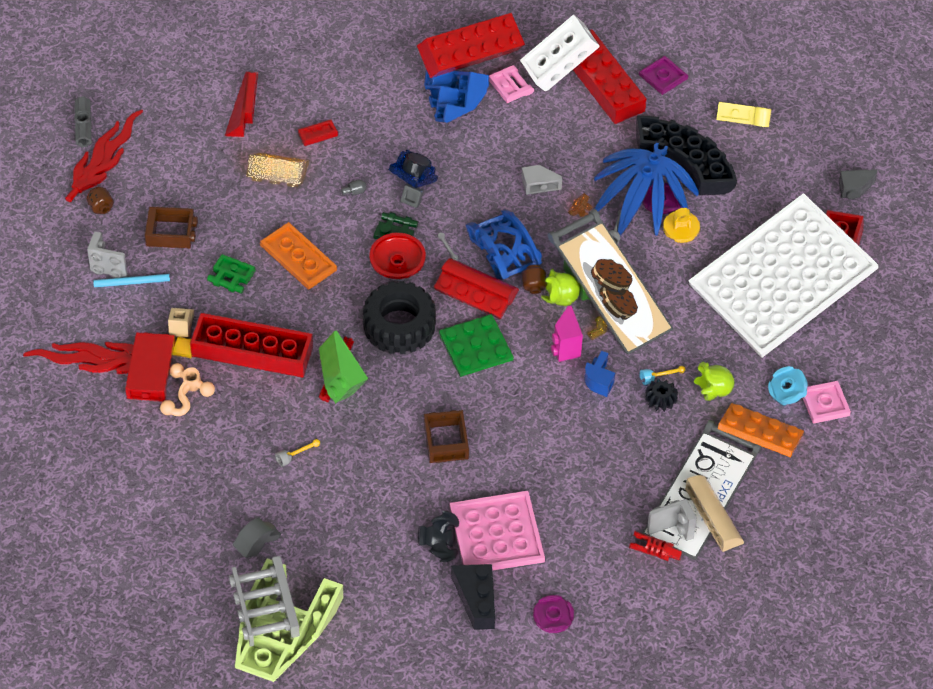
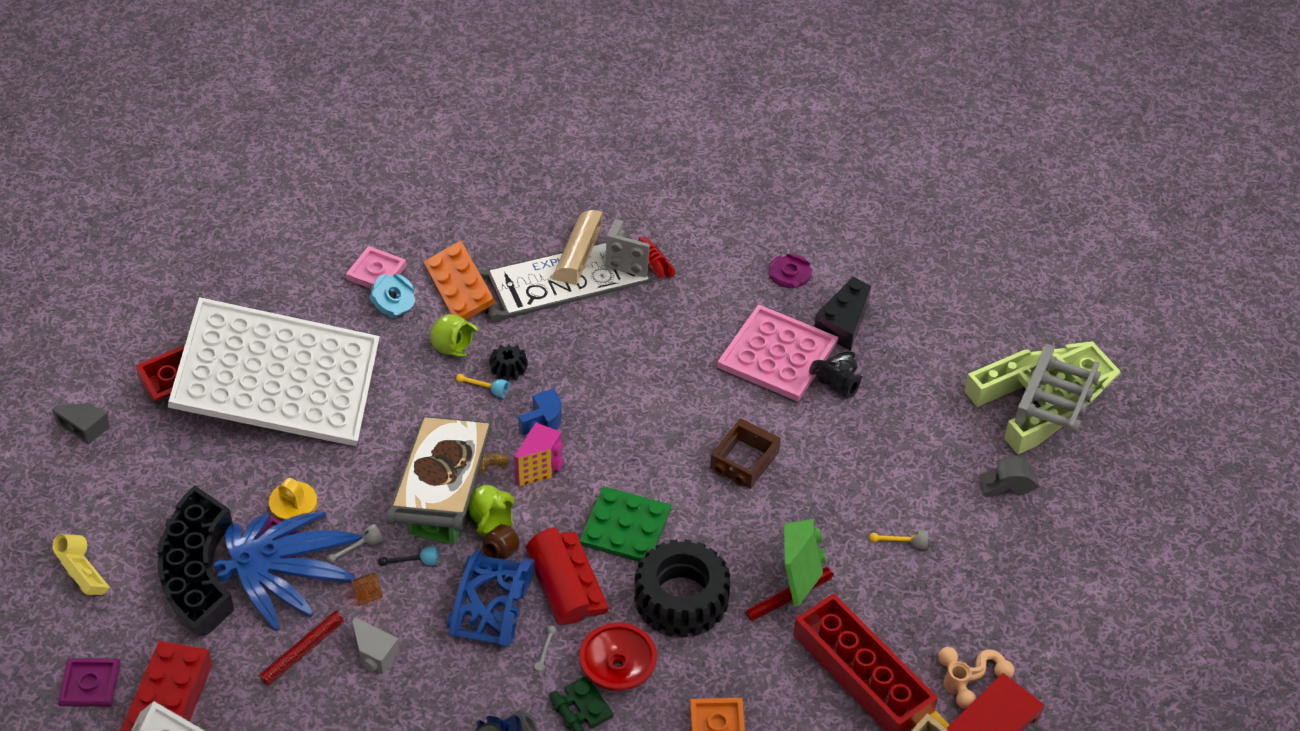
camera: 140 degrees left, 5 degrees down
(577, 159) = (301, 647): none -> red axle

